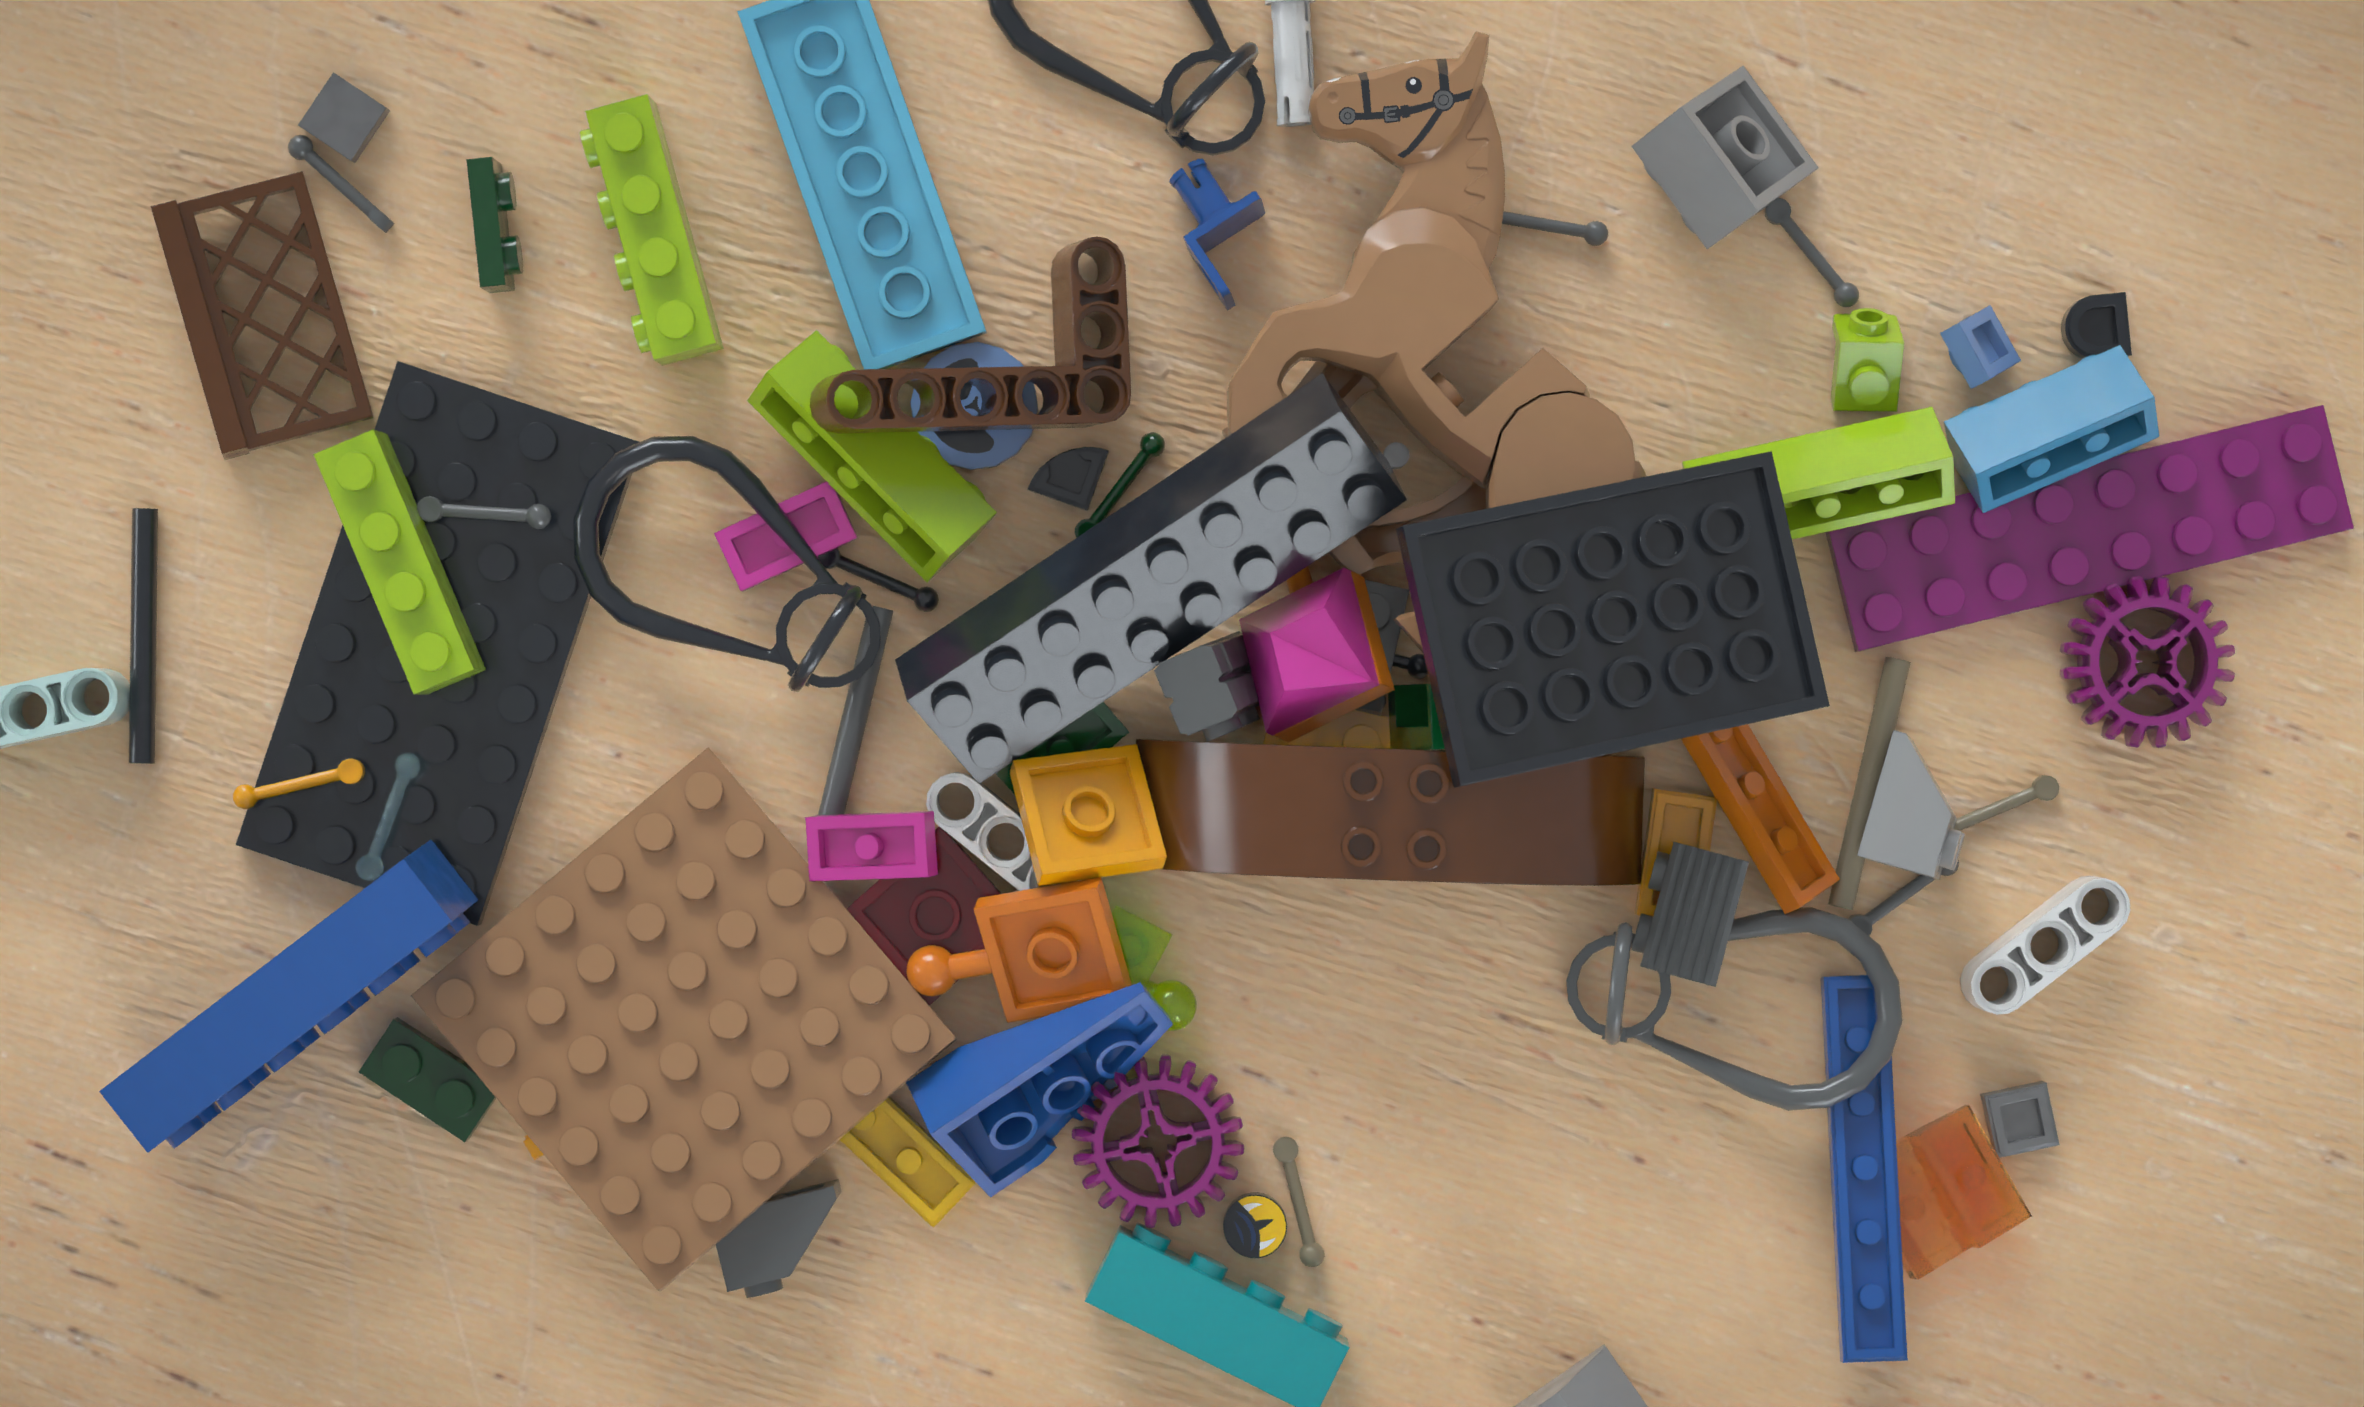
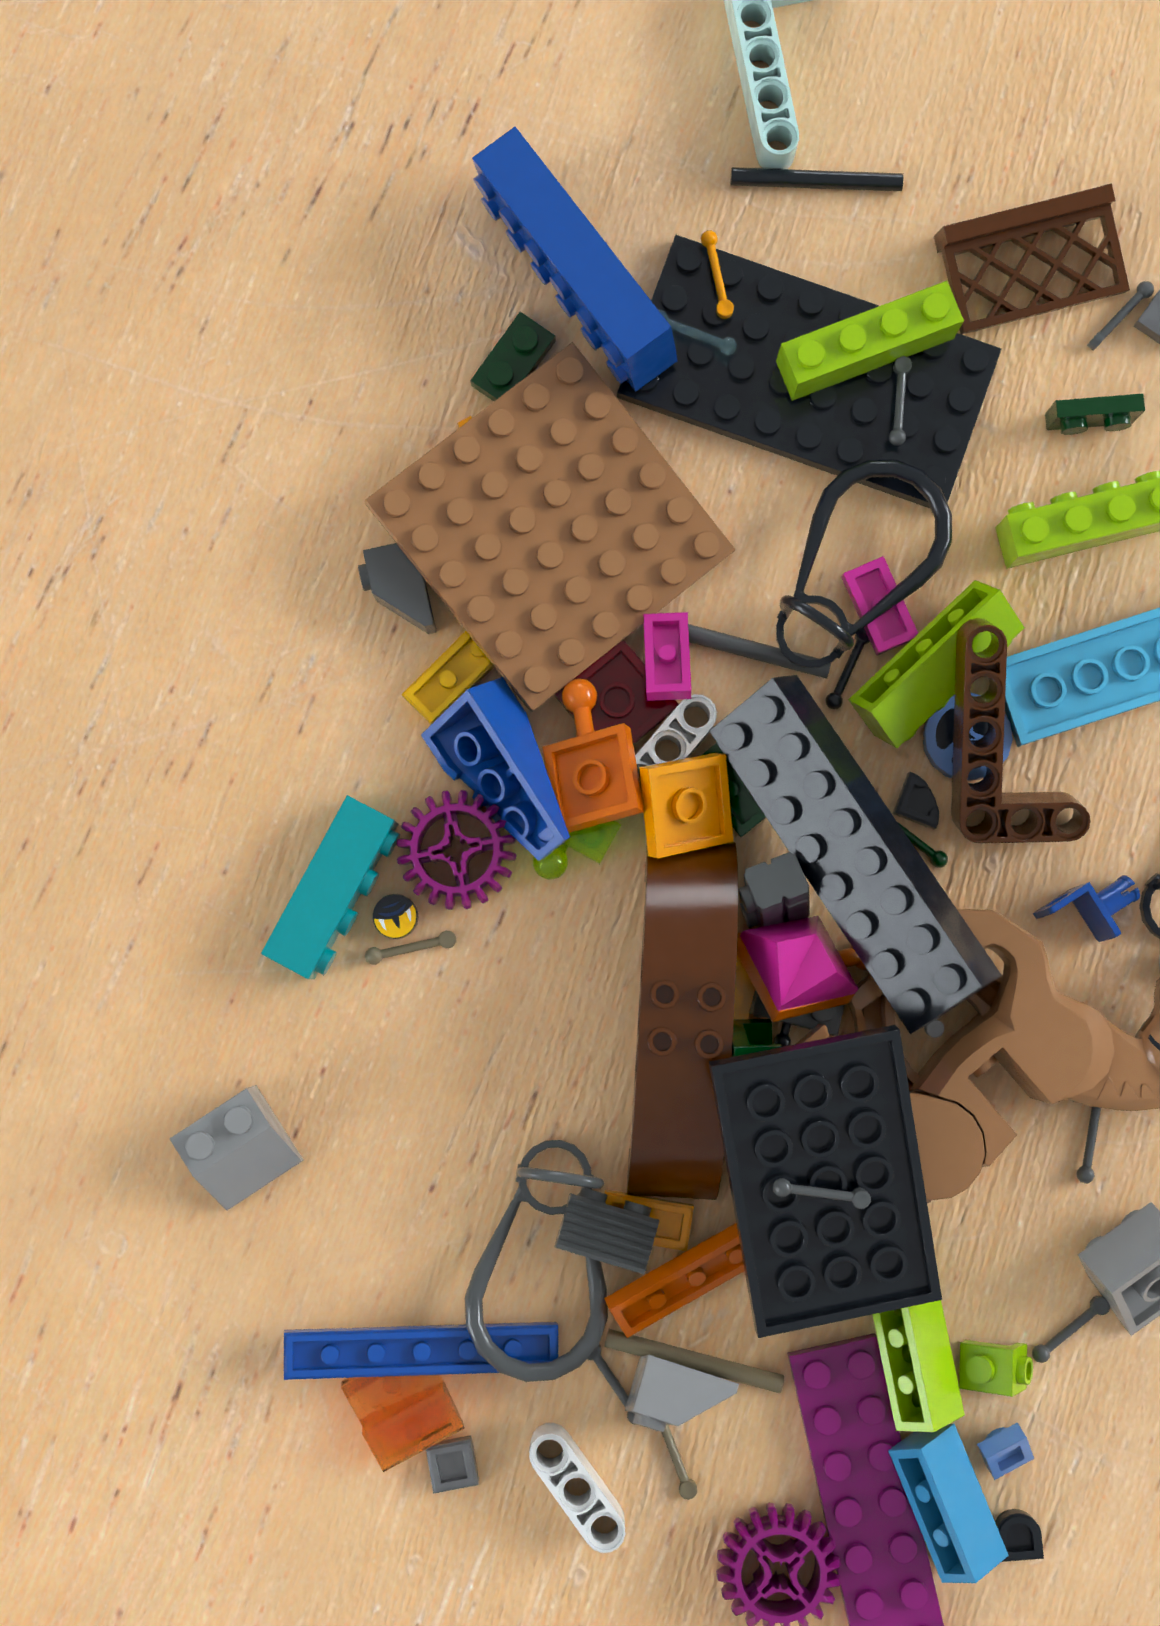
camera: 95 degrees right, 5 degrees down
(1633, 574) = (859, 1196): none -> dark grey hinge

